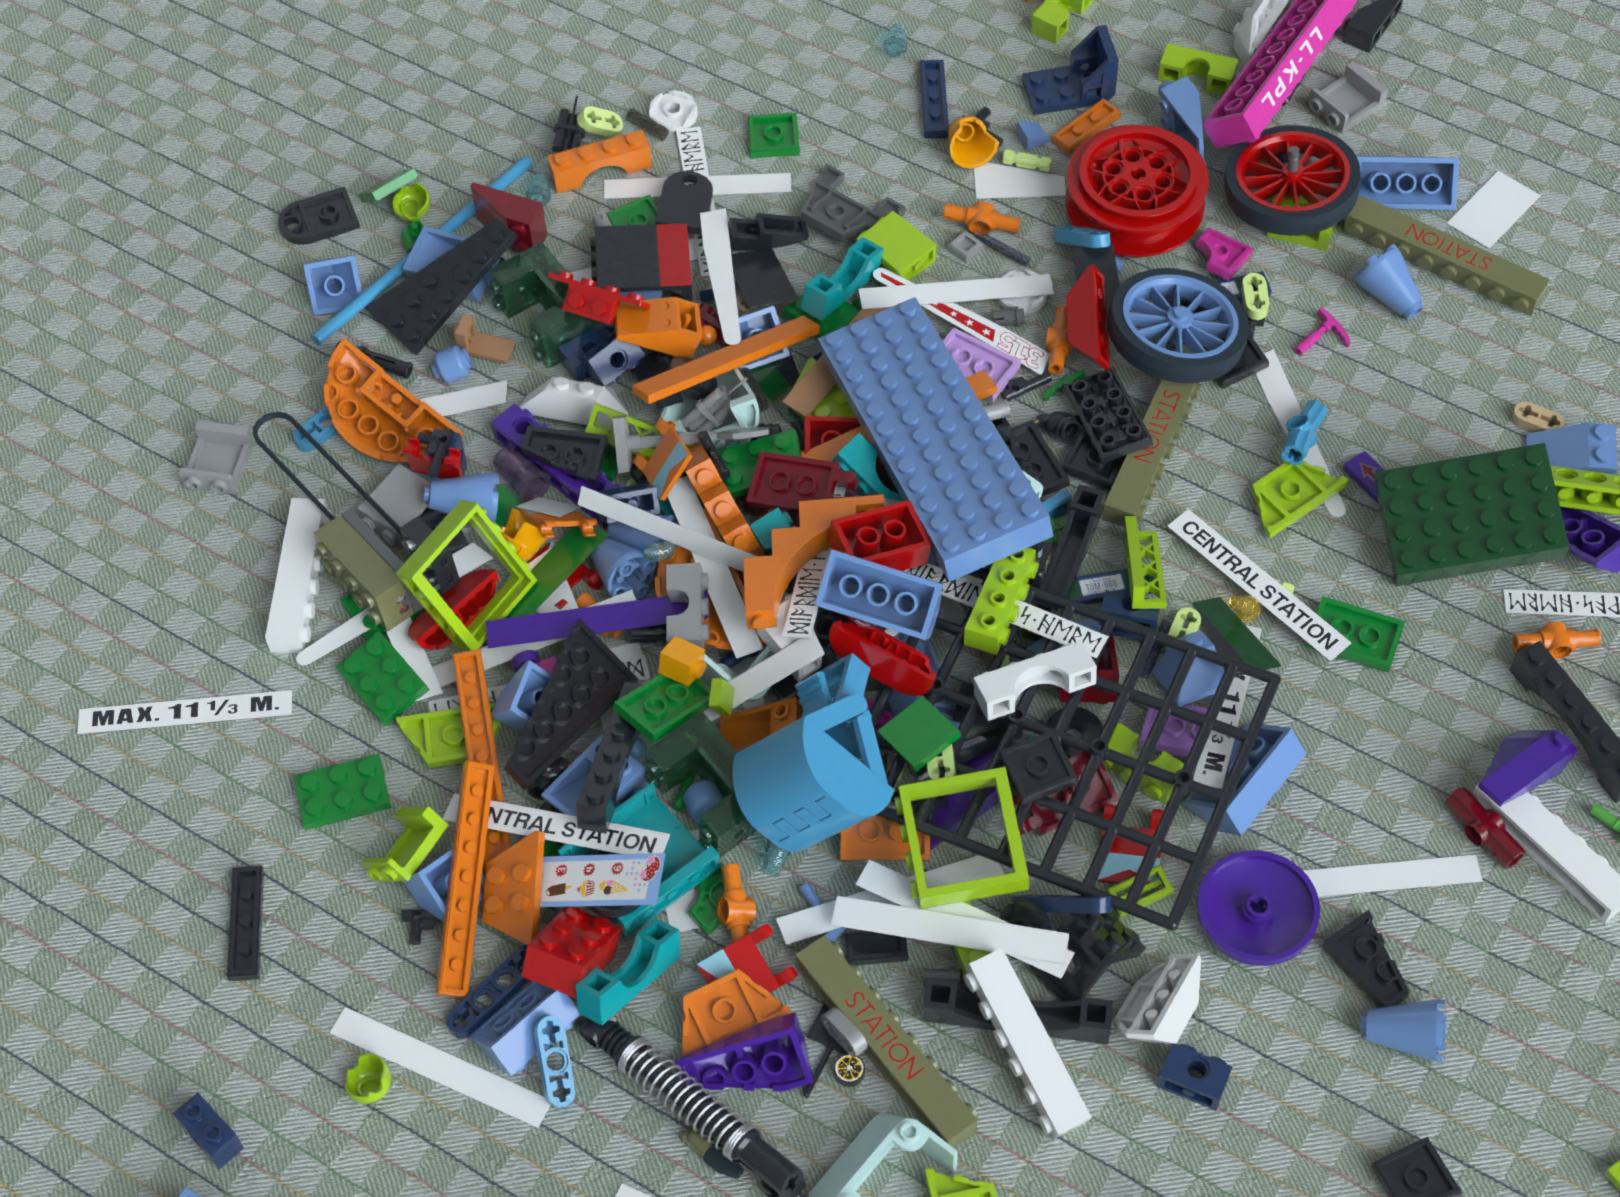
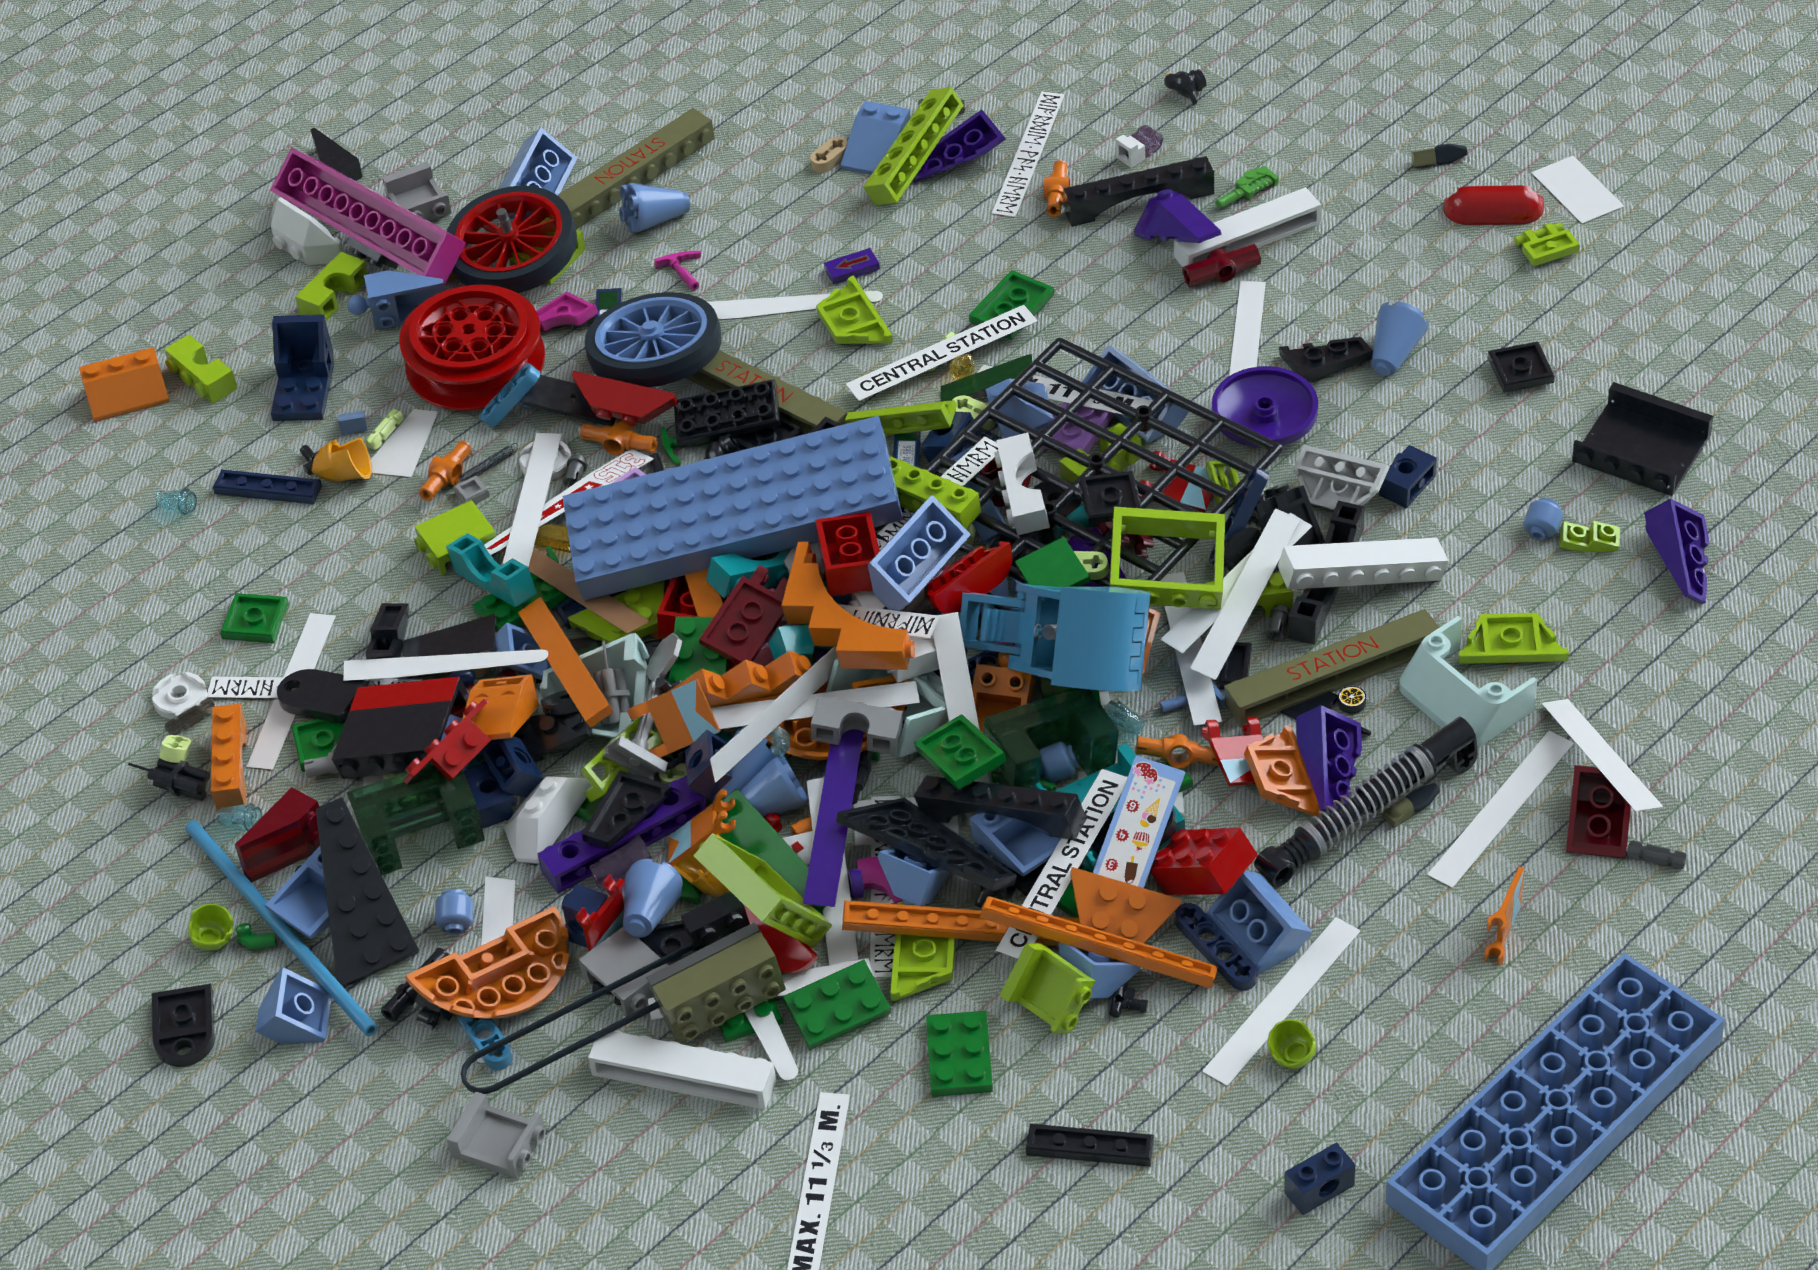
camera: 75 degrees left, 10 degrees down
(388, 185) = (178, 944): tile -> none
(436, 448) = (593, 900): black hose -> none
(481, 344) = (442, 878): medium nougat bracket -> none
(549, 506) = (678, 841): white sticker -> none
(551, 1085) = (1306, 895): beam -> none
(652, 953) = (1211, 811): teal arch -> none
(682, 661) = (921, 729): light orange brick -> none
(721, 697) = (967, 707): lime tile -> none
(839, 214) = (385, 578): dark grey wing -> none
(844, 1032) = (1320, 689): light grey beam -> none
(1085, 126) = (359, 382): orange tile -> none
(1250, 296) = (619, 292): yellowish green beam -> none
(1302, 432) = (794, 293): dark azure piece -> none
(1471, 514) = (928, 199): dark green brick -> none
(1493, 209) = (586, 136): white sticker -> none

